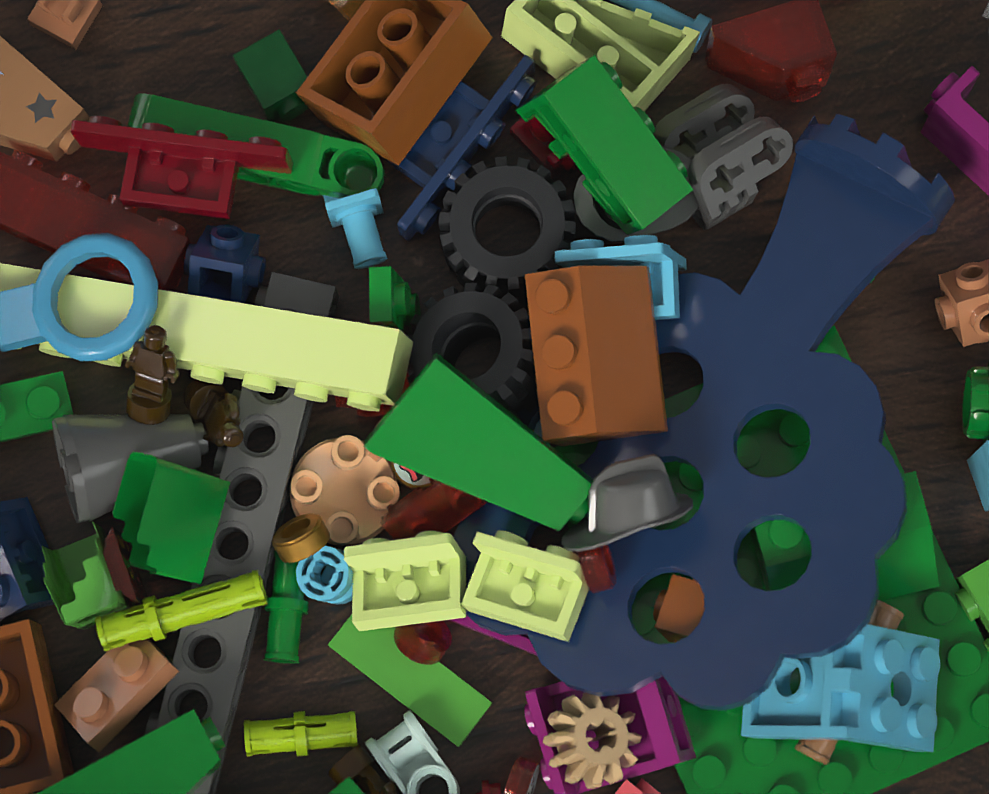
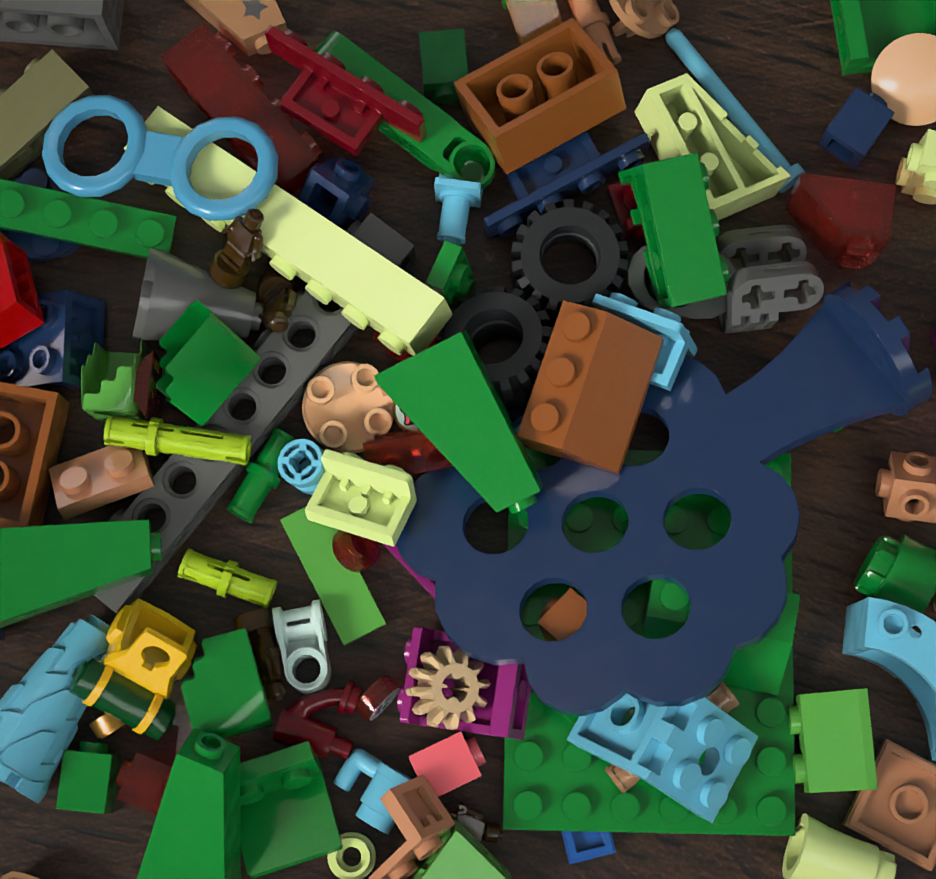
camera: 20 degrees right, 0 degrees up
(300, 538) = (296, 427): pearl gold tile -> none
(526, 585) = (452, 543): yellowish green bracket -> none
(598, 568) = (514, 551): clear red tile -> none
(625, 500) = (559, 511): dark grey piece -> none

